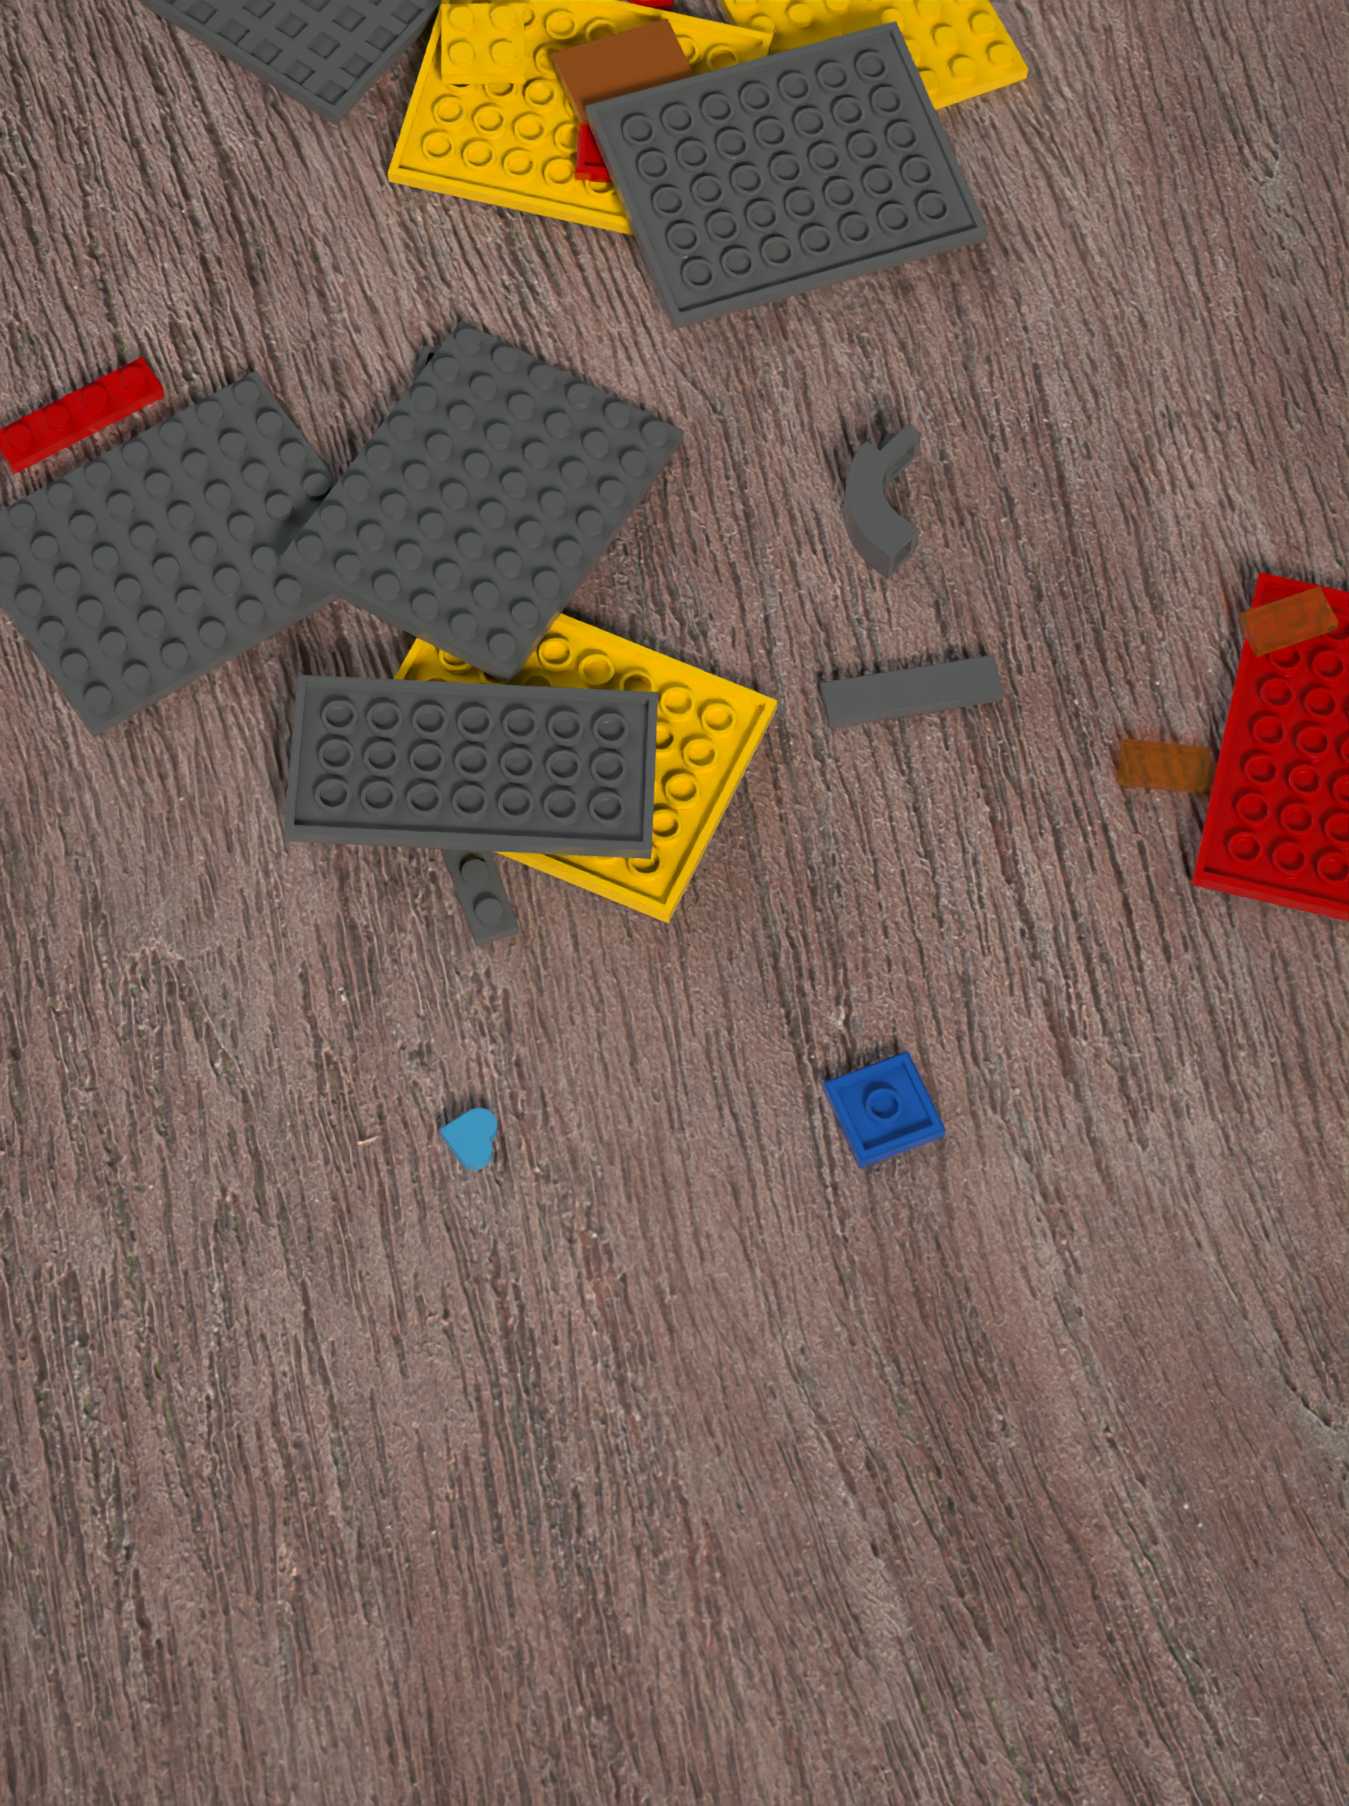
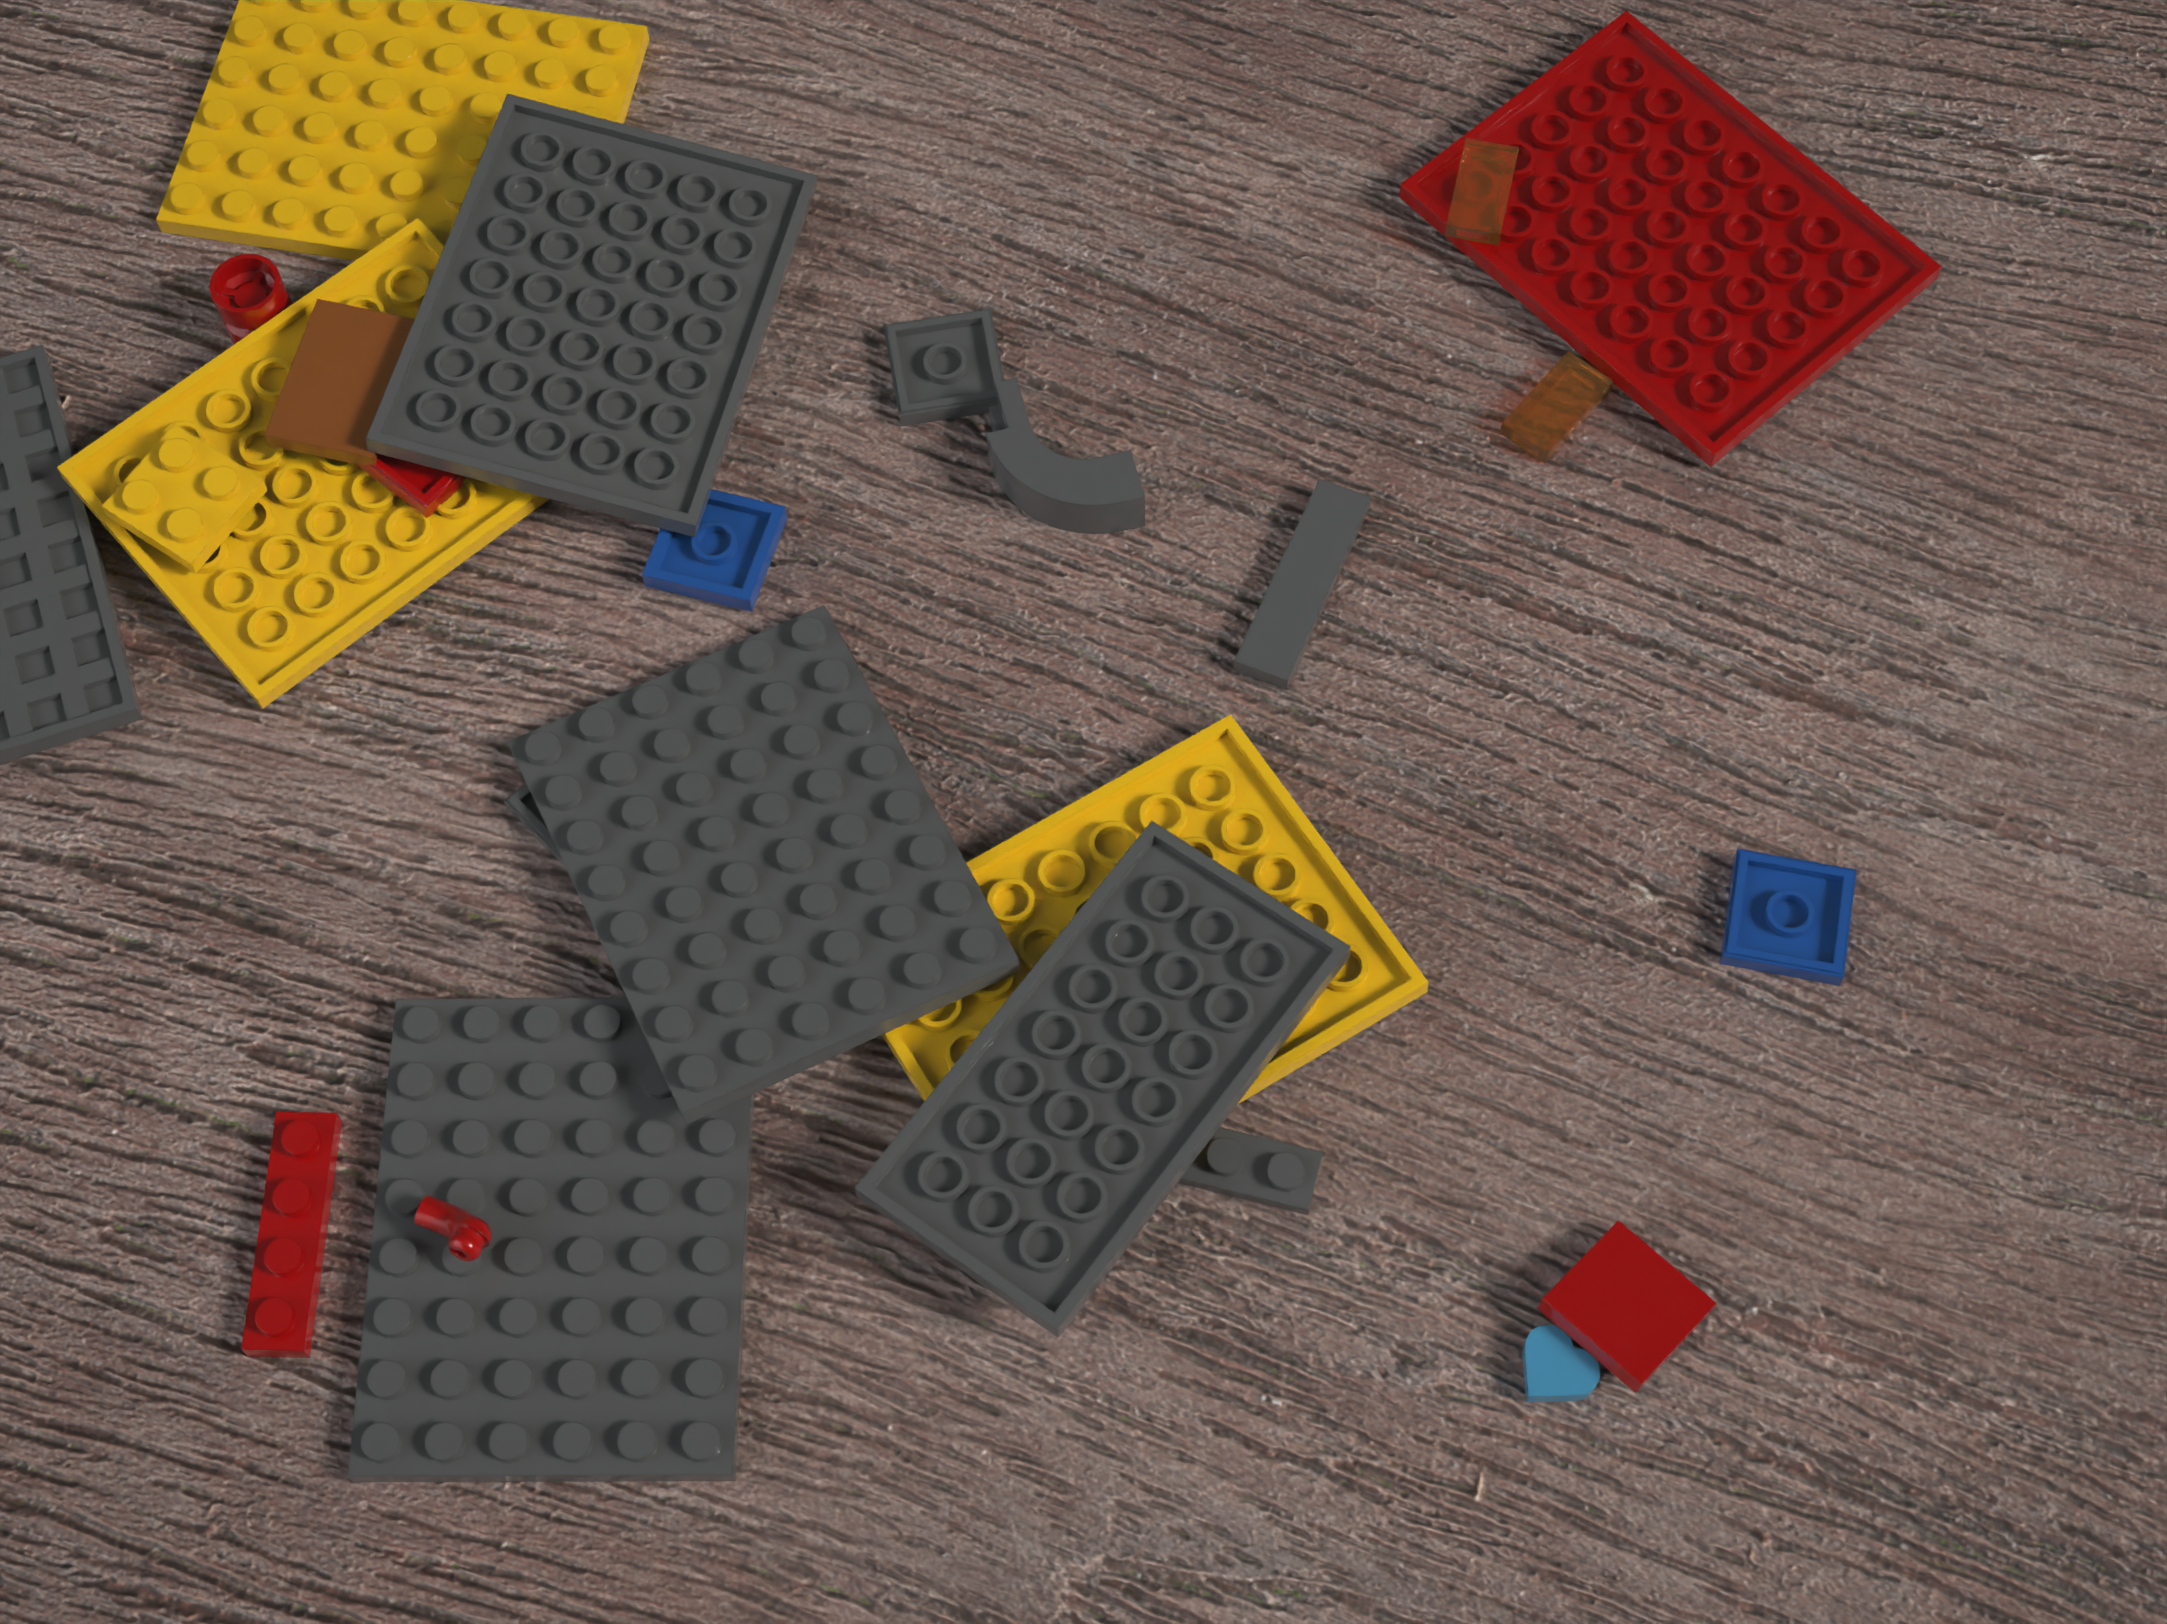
camera: 50 degrees left, 0 degrees up
(135, 488) = (465, 1230): none -> red arm
(538, 1153) = (1626, 1306): none -> red tile
(677, 356) = (725, 558): none -> blue plate
(912, 391) = (944, 366): none -> dark grey tile

